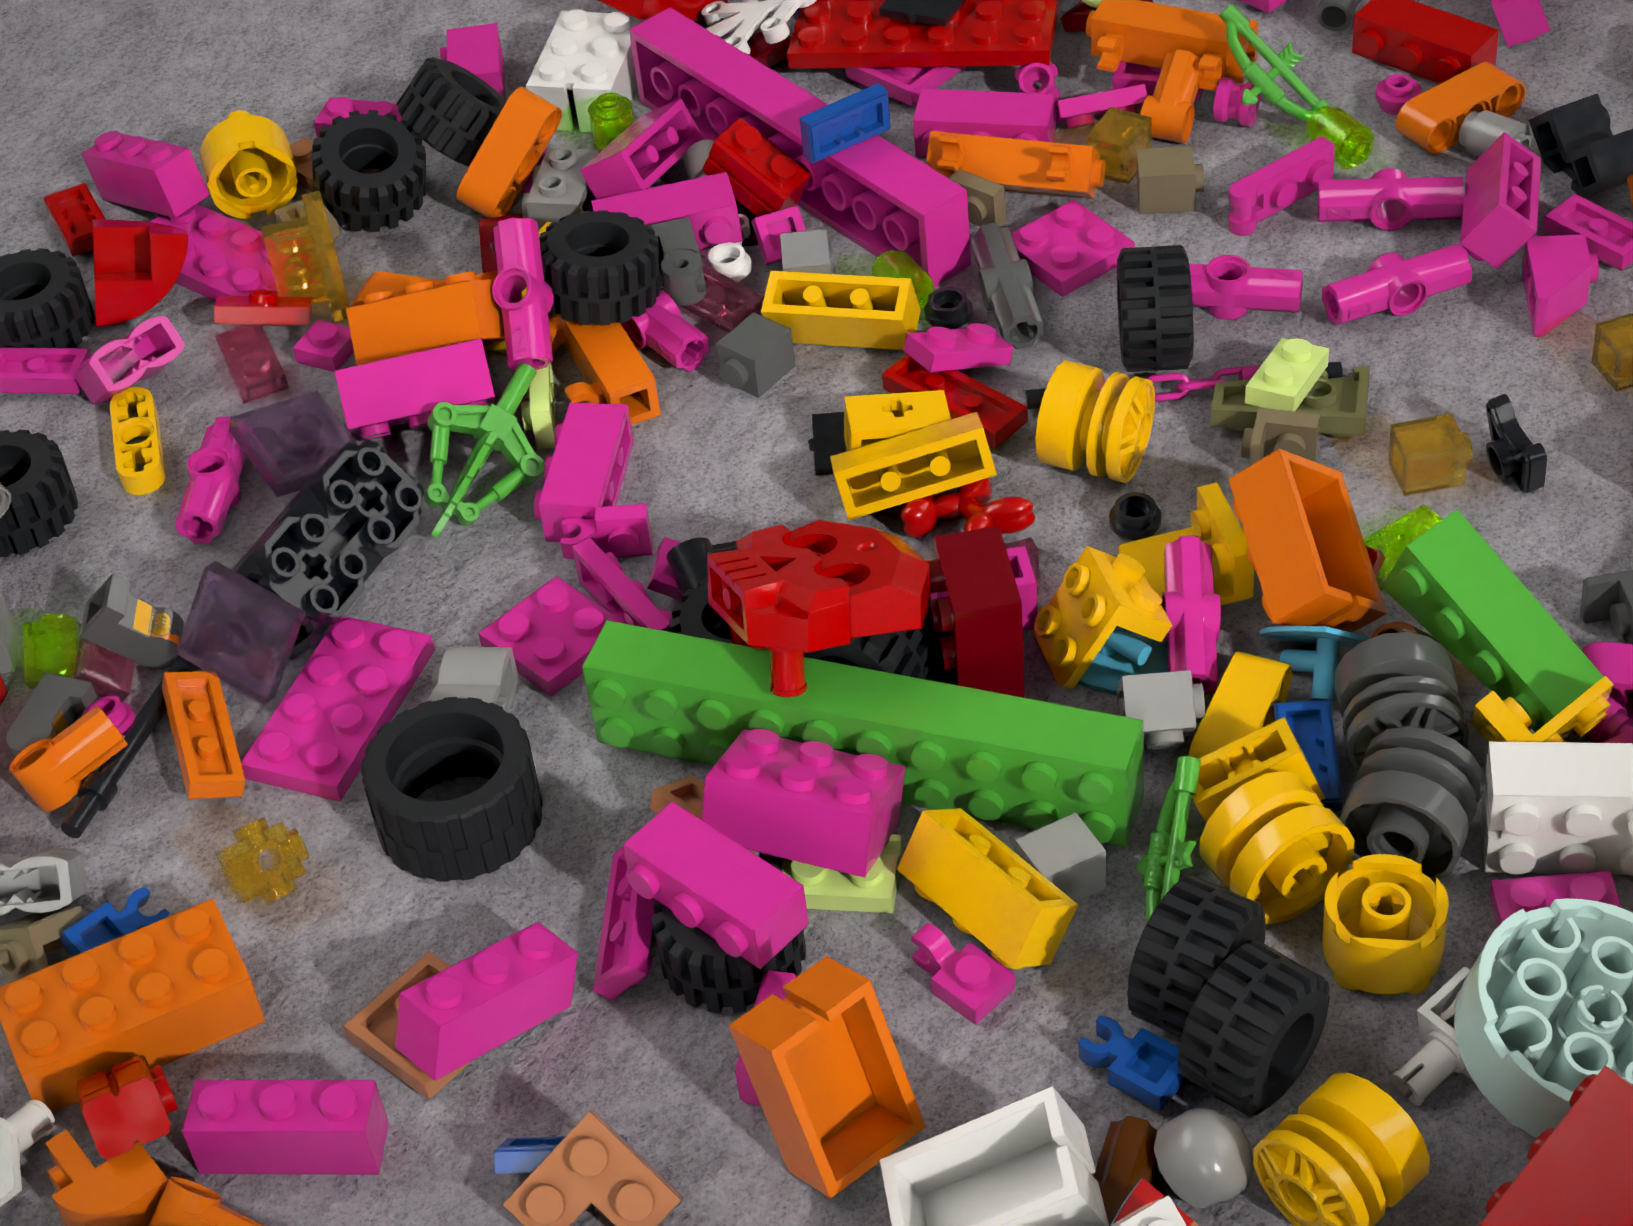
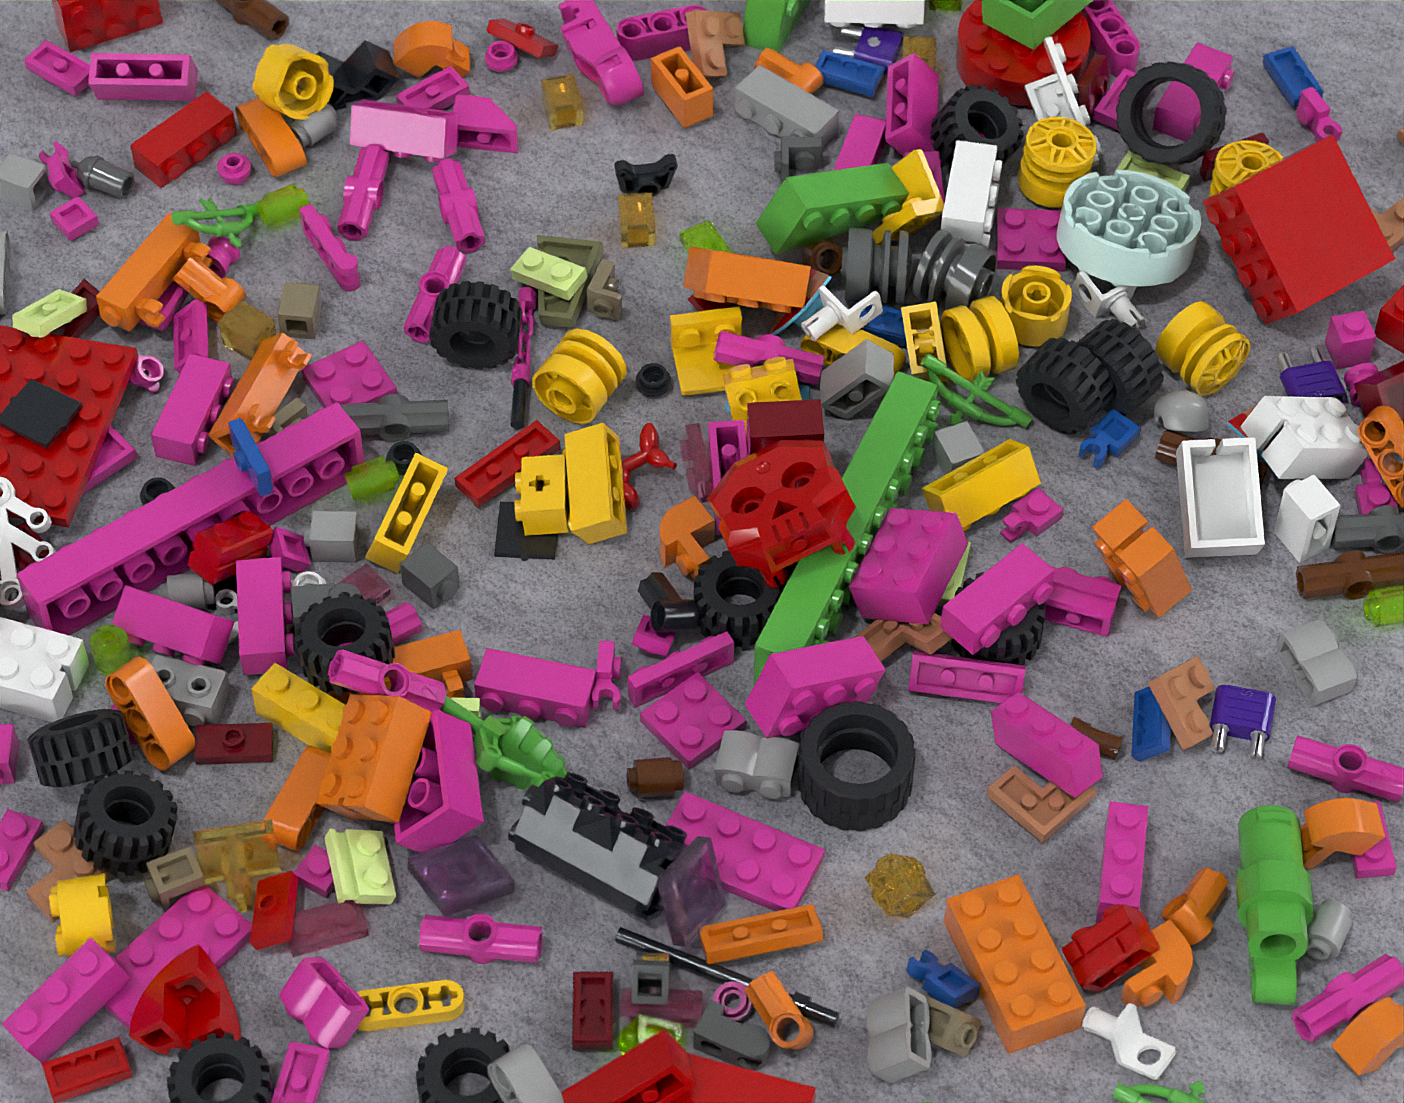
camera: 90 degrees left, 10 degrees up
(77, 589) = (592, 1011): none -> dark red plate
(309, 362) = (360, 866): none -> yellowish green plate
(451, 603) = (655, 777): none -> reddish brown brick
(534, 1071) = (1108, 743): none -> reddish brown pin
(562, 708) = (808, 680): none -> dark pink brick
(958, 348) = (462, 451): dark pink plate -> none
(1272, 663) = (836, 313): none -> white bracket
(1520, 72) = (293, 81): none -> yellow brick

